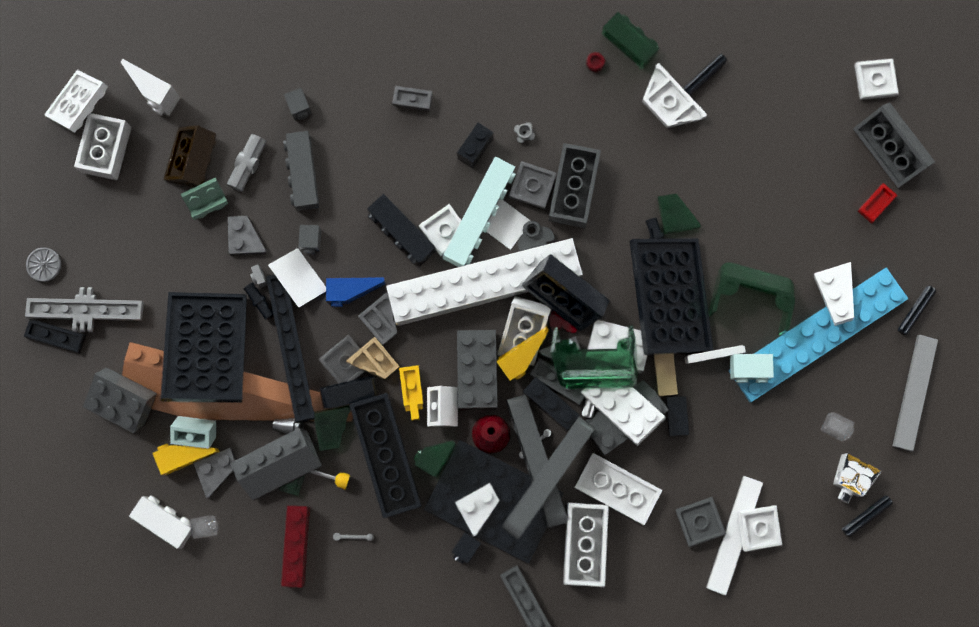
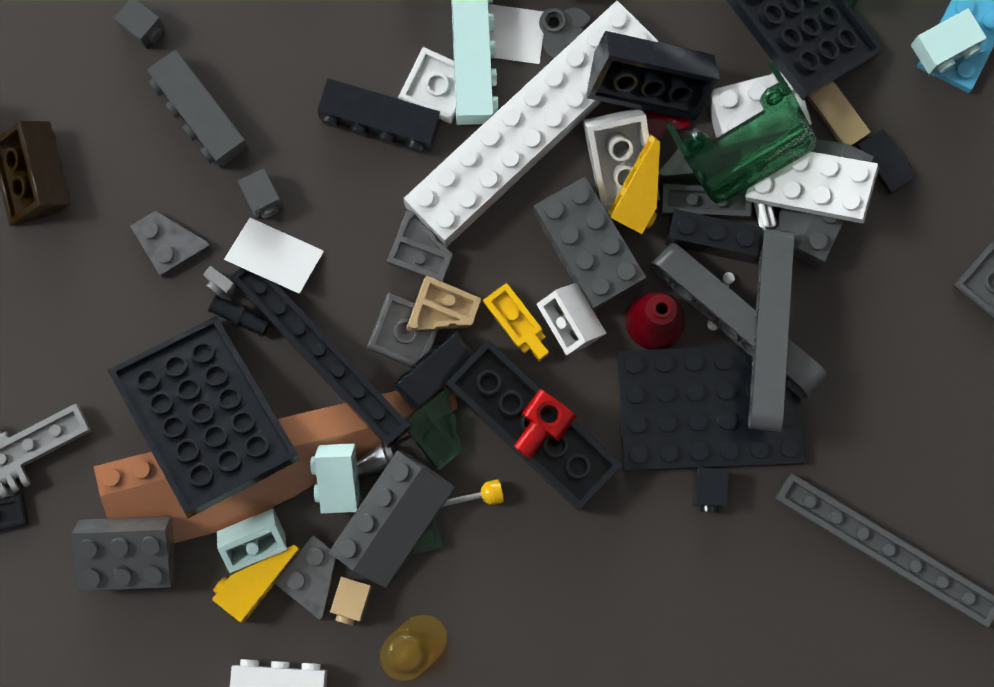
camera: 30 degrees left, 0 degrees up
(204, 199) = (84, 218): sand green bracket -> none
(204, 527) = (340, 659): clear brick -> none
(229, 496) = (350, 601): none -> tan brick
(246, 163) = (114, 139): light grey piece -> none
(249, 542) = (413, 647): none -> clear yellow piece
(259, 423) = (336, 478): none -> light aqua brick
(295, 546) = (480, 615): dark red brick -> none
(337, 536) = (572, 548): light grey hinge -> none
(345, 290) = (353, 233): blue slope -> none
(383, 460) = (538, 429): none -> red piece
(434, 457) = (600, 392): clear green slope -> none
(477, 507) = (696, 425): white wing -> none
(585, 544) = (867, 394): white brick -> none
(618, 489) = (865, 298): white plate -> none
(714, 354) = (888, 54): white tile -> none

